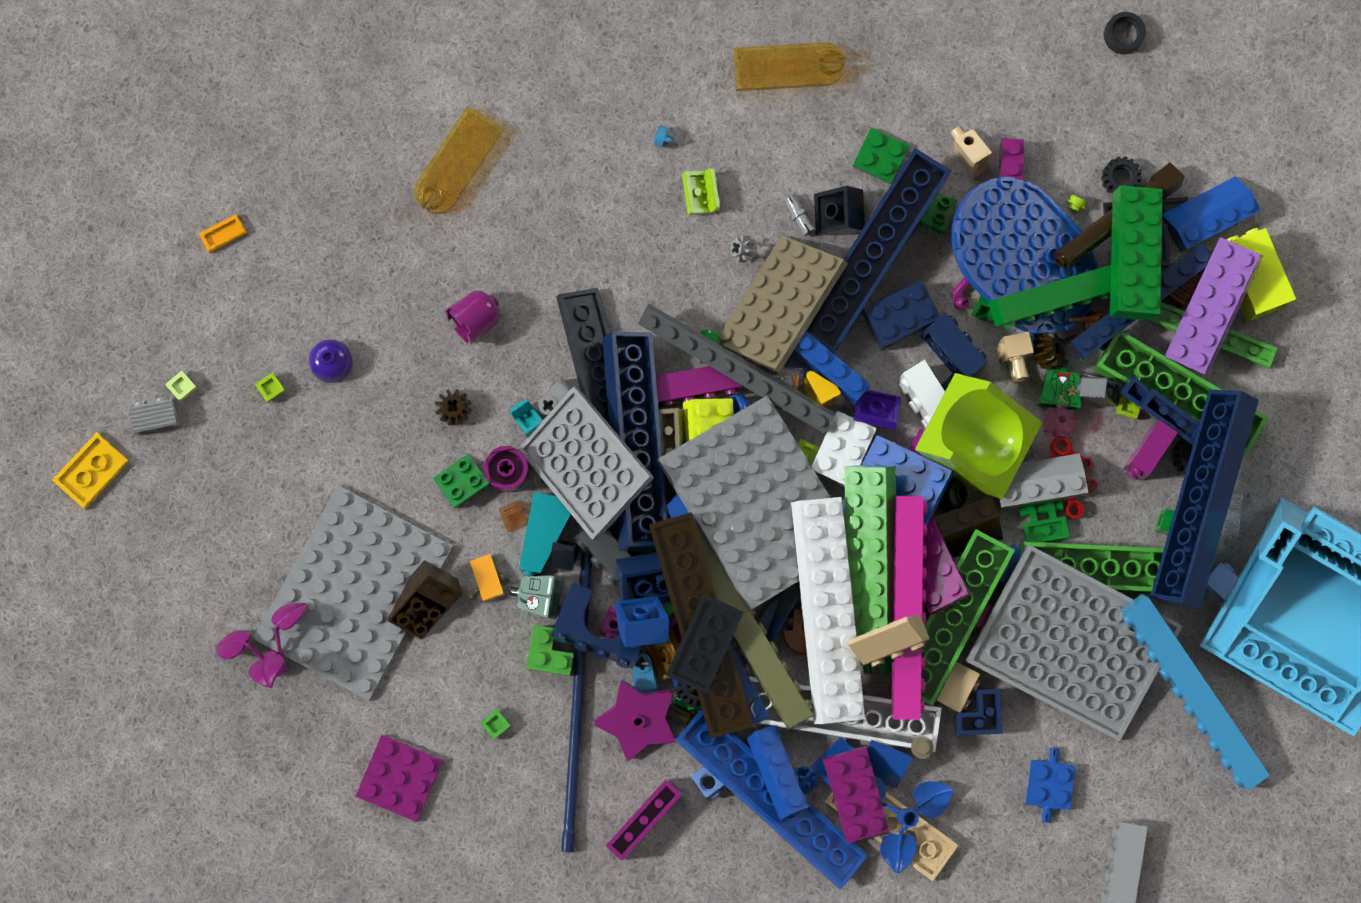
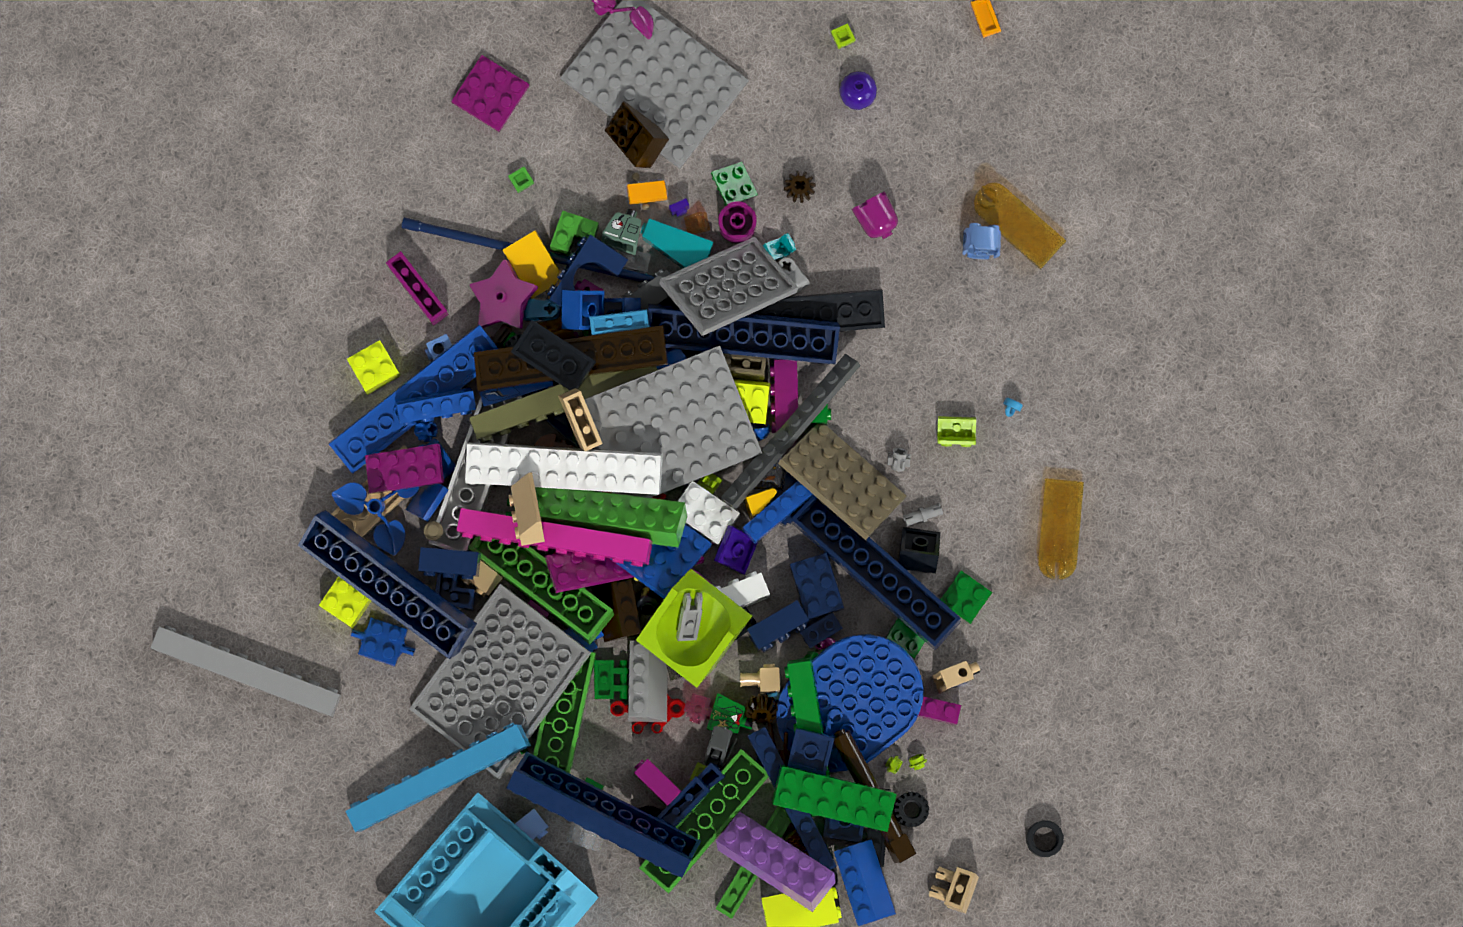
camera: 105 degrees right, 0 degrees up
(485, 195) = (981, 241): none -> medium blue brick
(500, 537) = (679, 208): none -> dark purple plate
(564, 554) = (655, 258): black slope -> none
(590, 692) = (532, 262): none -> yellow tile
(651, 575) = (619, 322): none -> dark azure tile
(743, 853) = (373, 367): none -> neon yellow brick
(774, 598) = (580, 419): none -> tan brick
(948, 301) = (821, 630): none -> dark blue hinge
(956, 722) = (449, 563): none -> dark blue brick
(971, 439) = (689, 618): none -> light grey hinge
(991, 789) = (387, 584): none -> dark blue brick
(1014, 834) = (345, 602): none -> neon yellow brick
(1069, 178) = (917, 762): none -> lime plate
(1091, 284) = (810, 751): none -> dark blue plate
(1202, 110) = (960, 890): none -> tan brick

